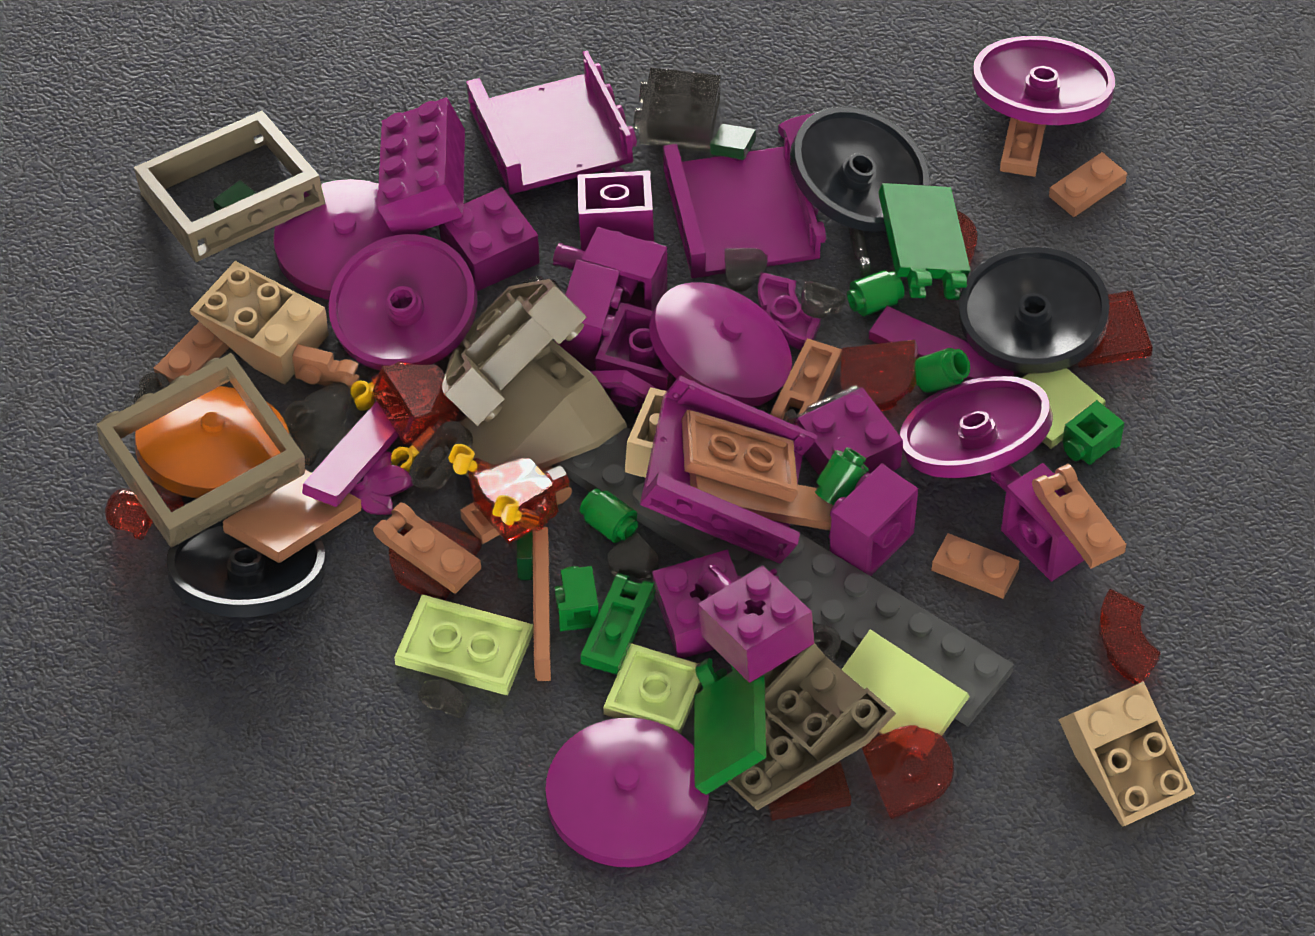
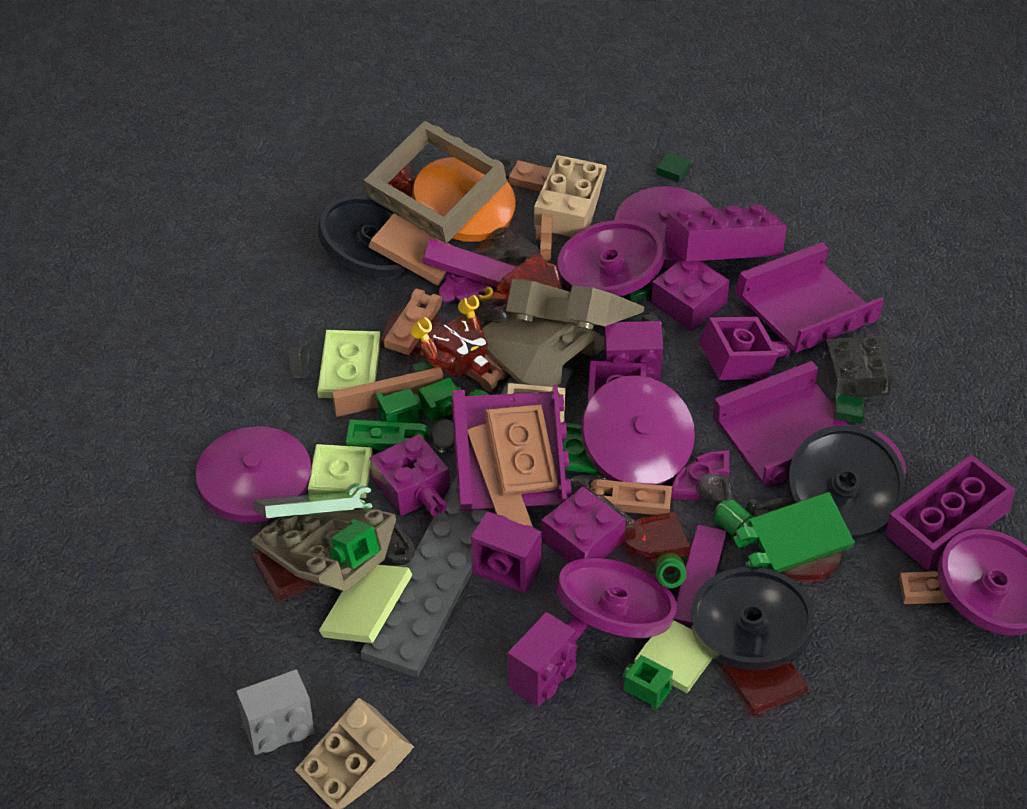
camera: 75 degrees right, 5 degrees down
(244, 217) = (663, 173): dark tan window -> none
(580, 545) = (437, 399): none -> green brick
(624, 387) = (573, 380): magenta tile -> none
(639, 261) = (680, 360): magenta brick -> none
(743, 266) = (729, 439): clear smoke tile -> none
(753, 620) = (373, 483): magenta brick -> none
(829, 671) = (354, 544): none -> green brick
(840, 475) = (533, 514): green brick -> none
(909, 767) = (306, 622): clear red tile -> none
(933, 90) = (958, 501): none -> magenta brick
(975, 565) = (503, 632): nougat plate -> none
(1060, 815) = (275, 712): none -> light grey brick
(1079, 516) = (526, 659): nougat plate -> none
(1087, 184) = (912, 640): nougat plate -> none
(1124, 639) = (465, 740): clear red tile -> none

